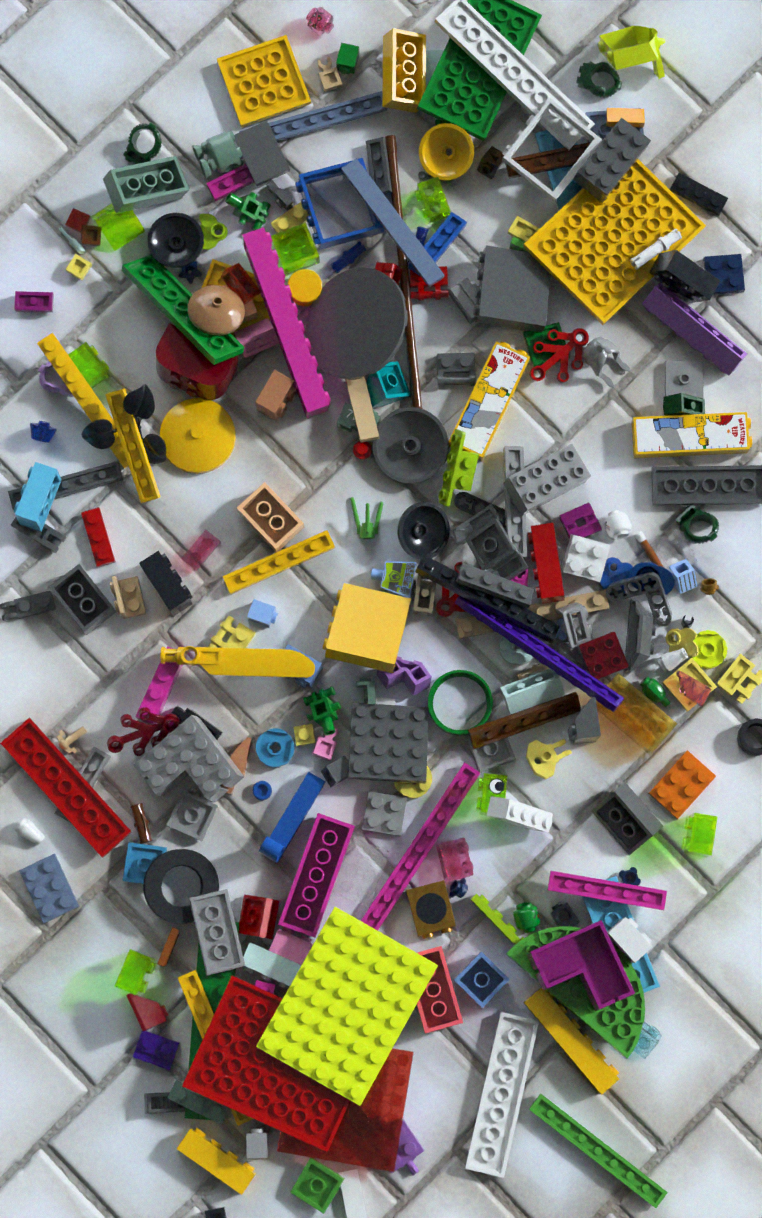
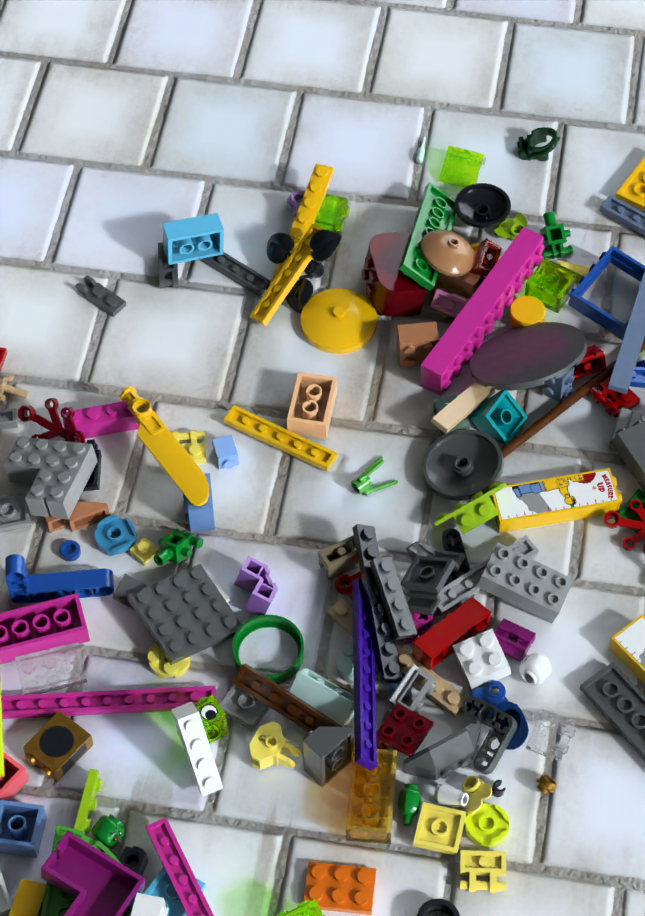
camera: 55 degrees right, 25 degrees down
(33, 301) = (350, 154): magenta plate -> none
(42, 431) = (251, 218): clear blue piece -> none
(77, 219) = (440, 144): clear red tile -> none
(78, 267) = (404, 164): light yellow plate -> none
(82, 599) = (134, 322): dark grey brick -> none
(90, 235) = (435, 156): reddish brown plate -> none
(98, 537) = (196, 307): red plate -> none
(129, 597) = (159, 351): tan bracket -> none
(145, 184) = (507, 156): sand green brick -> none
(167, 582) = (194, 367): black brick -> none
(190, 276) = (469, 231): dark blue plate -> none
(201, 550) = (244, 379): clear pink plate -> none
(221, 154) = (578, 190): sand green piece -> none
(230, 182) = (571, 217): dark pink plate -> none
(261, 153) = (606, 217): dark grey tile -> none
(281, 197) = (583, 255): dark grey plate -> none
(325, 746) = (146, 570): bright pink plate -> none
(348, 257) = (585, 328): clear blue pin -> none
(362, 450) = (427, 437): red plate -> none
(367, 627) = (274, 529): yellow brick -> none
(369, 694) = (223, 572): sand green bracket -> none
(384, 813) = (120, 656): light grey plate -> none
(396, 577) = (336, 525): torso -> none
(432, 534) = (411, 516): black dish -> none
(455, 859) = (117, 736): clear pink bracket -> none
(456, 364) = (562, 456): dark grey plate -> none
(458, 888) = (93, 757): dark blue plate -> none
(627, 818) = (269, 857): dark grey slope -> none
(634, 877) = (213, 893): dark blue plate -> none
(648, 549) = (534, 717): dark orange bar -> none
(684, 576) = (535, 752): light blue brick -> none
(692, 688) = (436, 829): clear pink slope -> none
(693, 515) = (597, 727): dark green piece -> none

